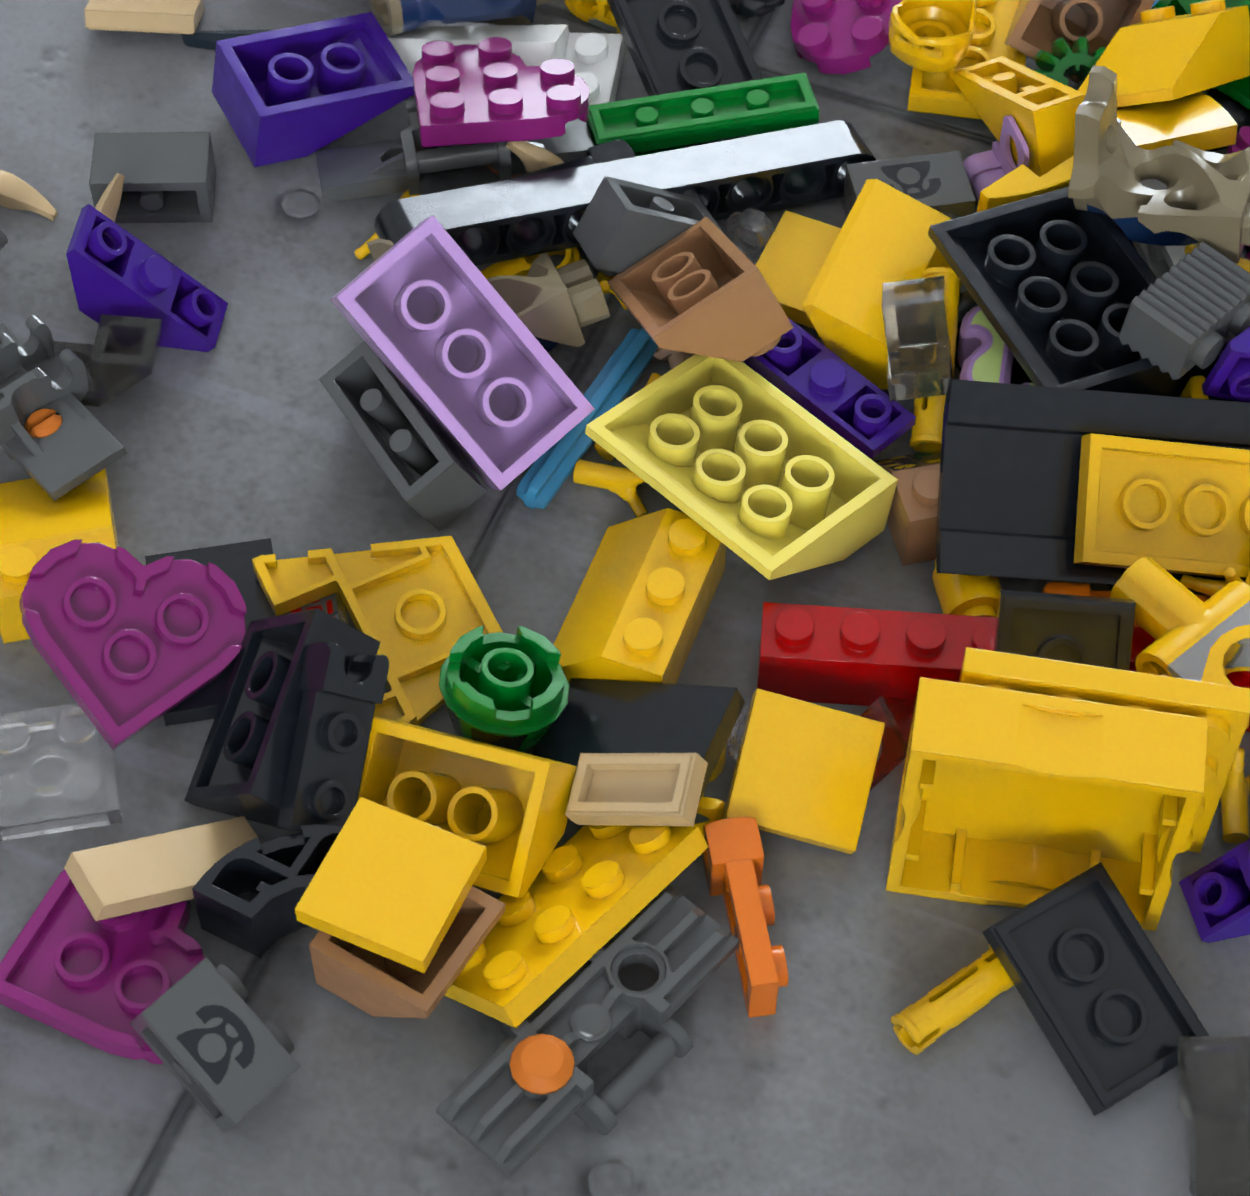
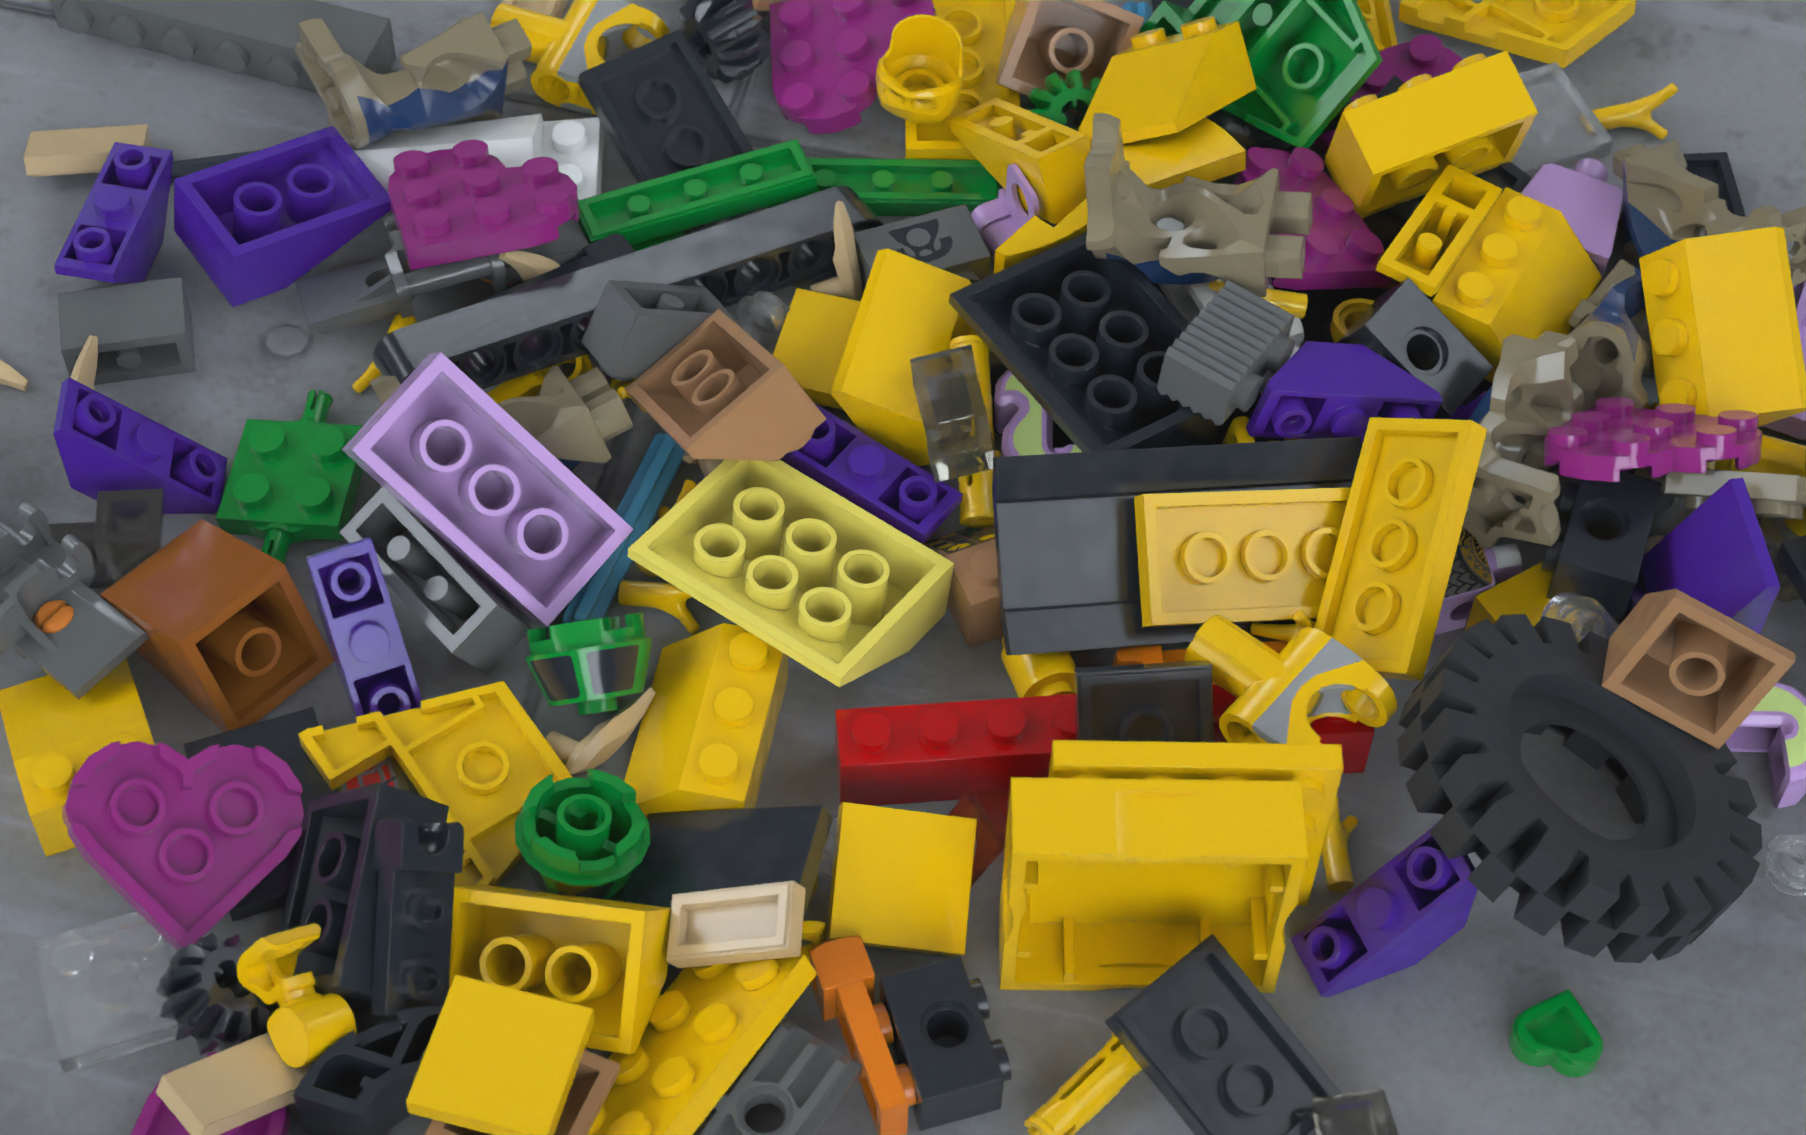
camera: 10 degrees left, 0 degrees up
(139, 787) = (209, 999): none -> black gear
(165, 73) = (121, 218): none -> dark purple slope
(198, 452) = (222, 624): none -> dark orange slope
(214, 822) = (306, 1019): none -> yellow leg
(282, 332) = (292, 480): none -> green plate
(326, 469) = (363, 629): none -> dark purple slope
(536, 527) = (590, 661): none -> green cone
(539, 604) = (604, 738): none -> tan bar
(823, 968) = (953, 1080): none -> black brick
(835, 187) = (845, 259): none -> tan bar
(908, 130) = (908, 185): none -> green tile

